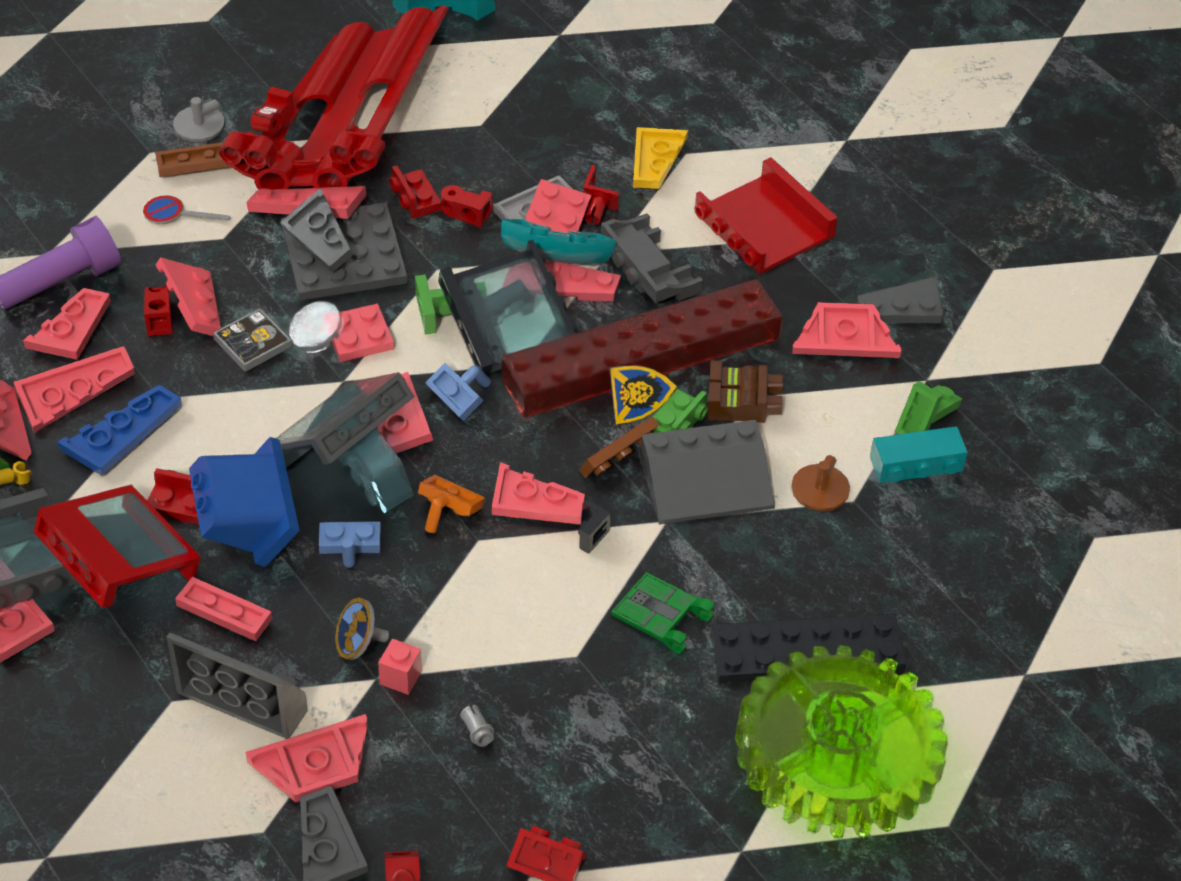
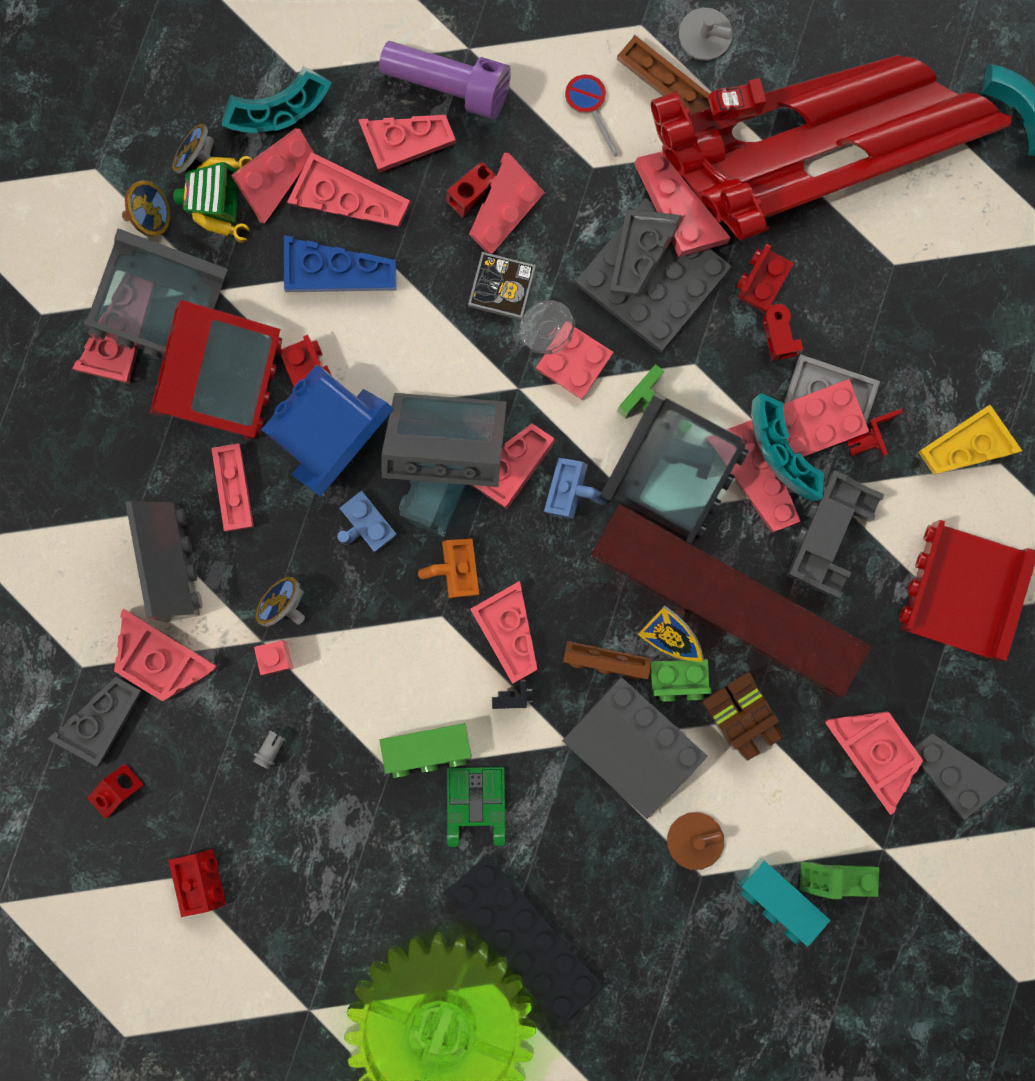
camera: 55 degrees right, 35 degrees up
(581, 610) = (425, 750): none -> bright green brick

